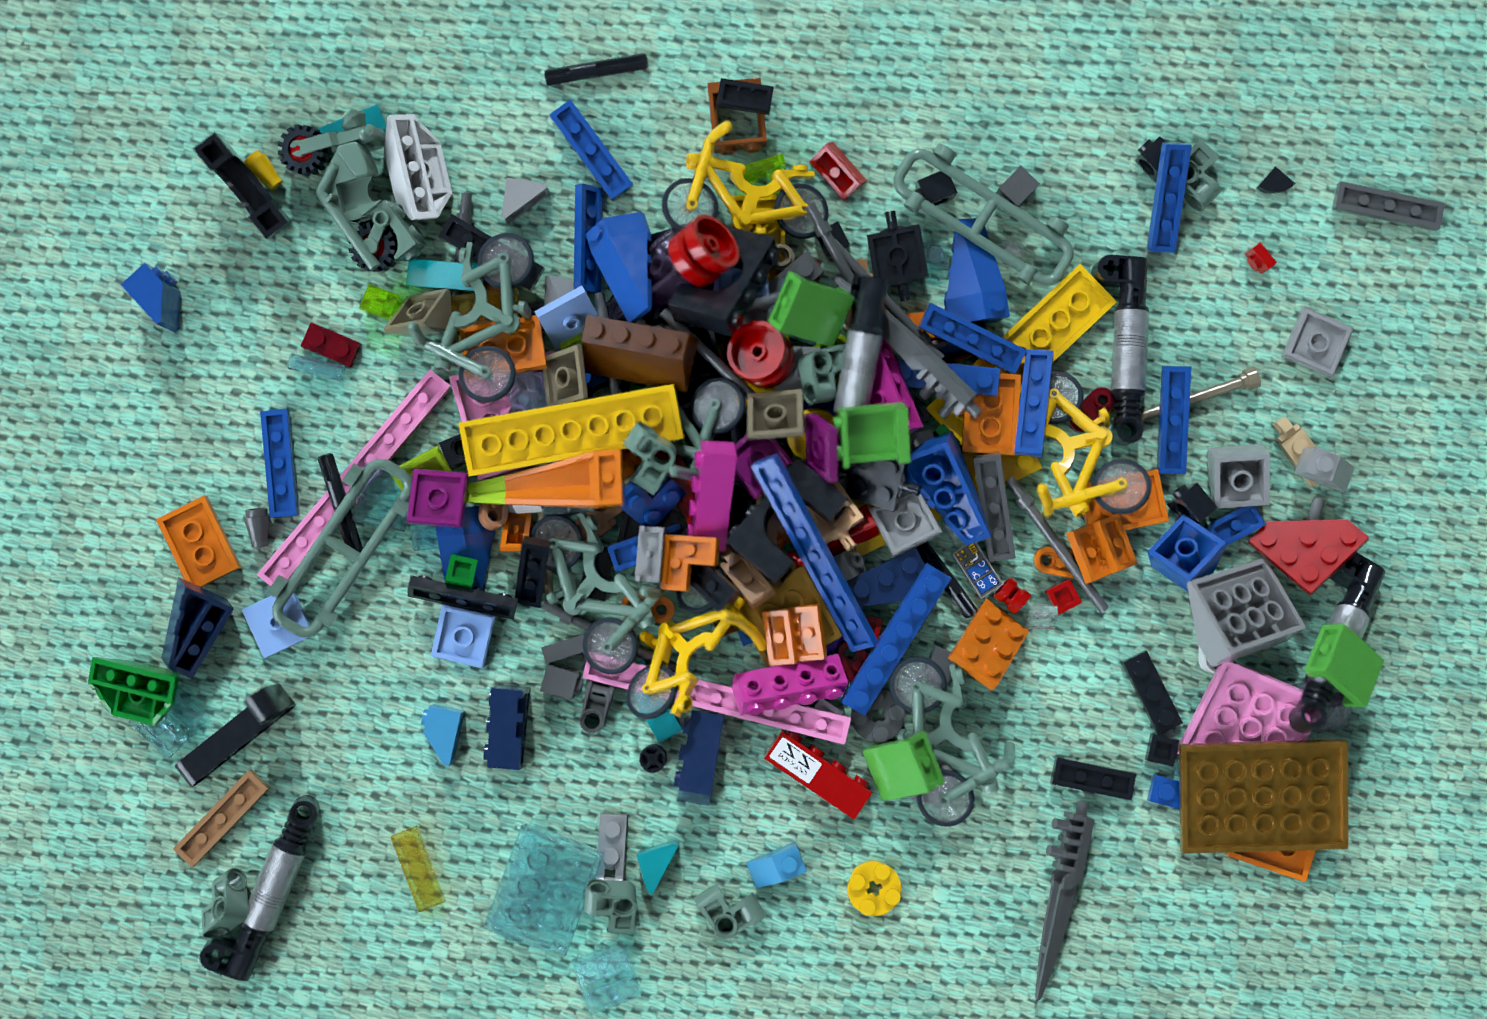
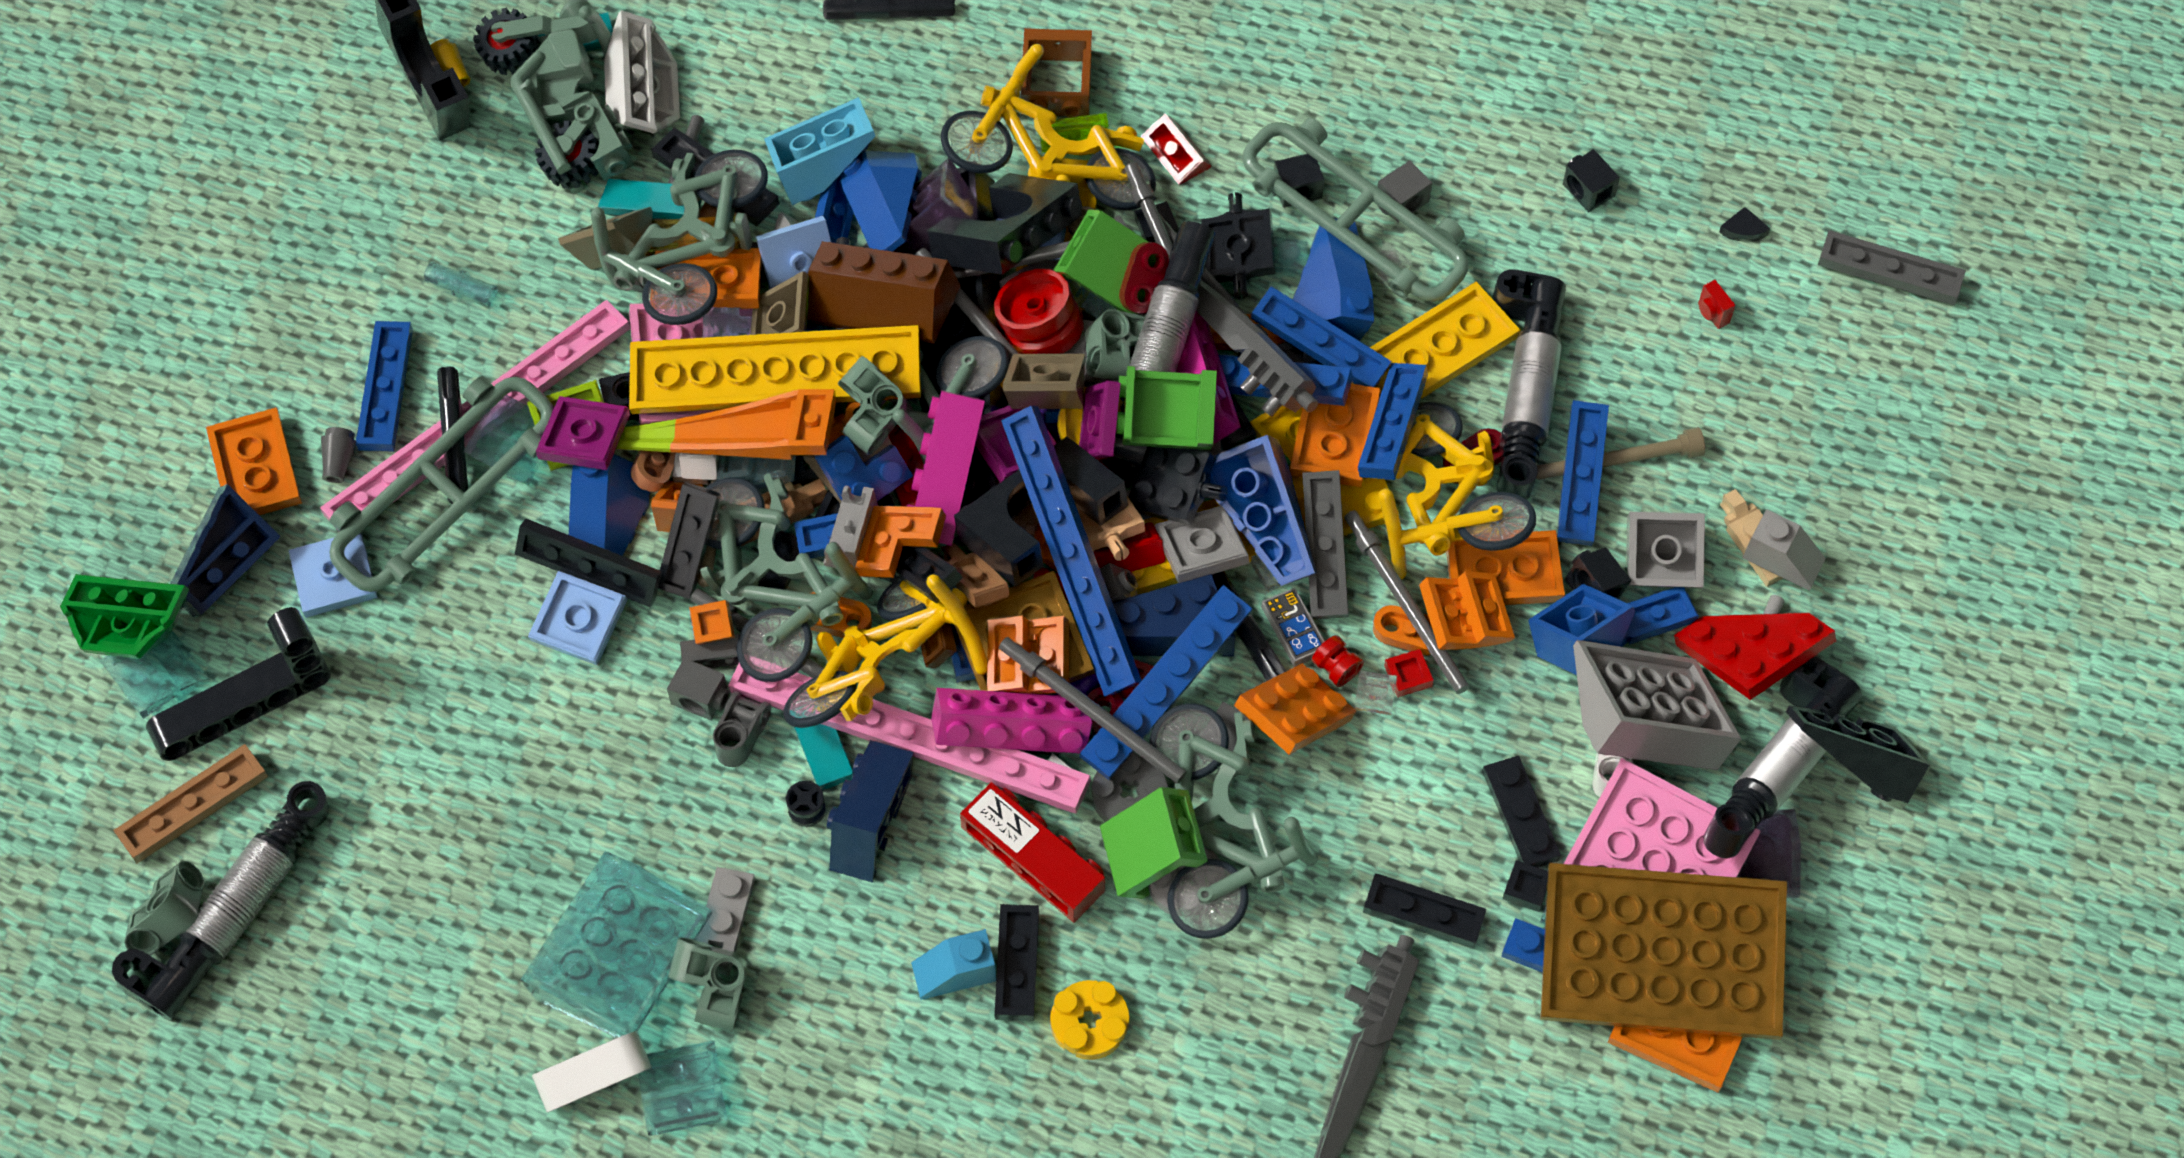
camera: 10 degrees right, 25 degrees down
(156, 295) = (279, 170): blue slope -> none
(331, 345) = (485, 262): dark red plate -> none
(380, 302) = (558, 218): clear neon green panel -> none
(417, 868) = (445, 908): clear yellow tile -> none
(424, 537) = (552, 494): clear light blue slope -> none
(443, 730) = (525, 727): dark azure slope -> none
(461, 571) = (593, 525): green plate -> none
(507, 726) = (613, 728): dark blue wedge -> none
(520, 197) = (763, 121): light grey slope -> none
(545, 982) = (591, 1071): none -> white beam
(562, 634) = (712, 622): none -> orange tile
(568, 220) = (819, 149): none -> medium azure slope
(591, 150) = (861, 81): blue plate -> none
(654, 862) = (784, 936): teal slope -> none
(703, 250) = (984, 178): red wheel -> none
(742, 914) = (895, 1021): sand green piece -> none
(745, 96) = (1070, 44): black plate -> none
(801, 649) = (1035, 666): none -> dark grey bar
(819, 856) = (1017, 962): none -> black plate
(837, 321) = (1142, 276): none -> dark red plate
(1168, 197) = (1598, 216): blue plate -> none
(1201, 188) = (1634, 205): sand green piece -> none
(1317, 342) = (1786, 411): light grey plate -> none
(1345, 663) = (1791, 775): bright green panel -> none
(1393, 624) = (1867, 749): none -> black wedge

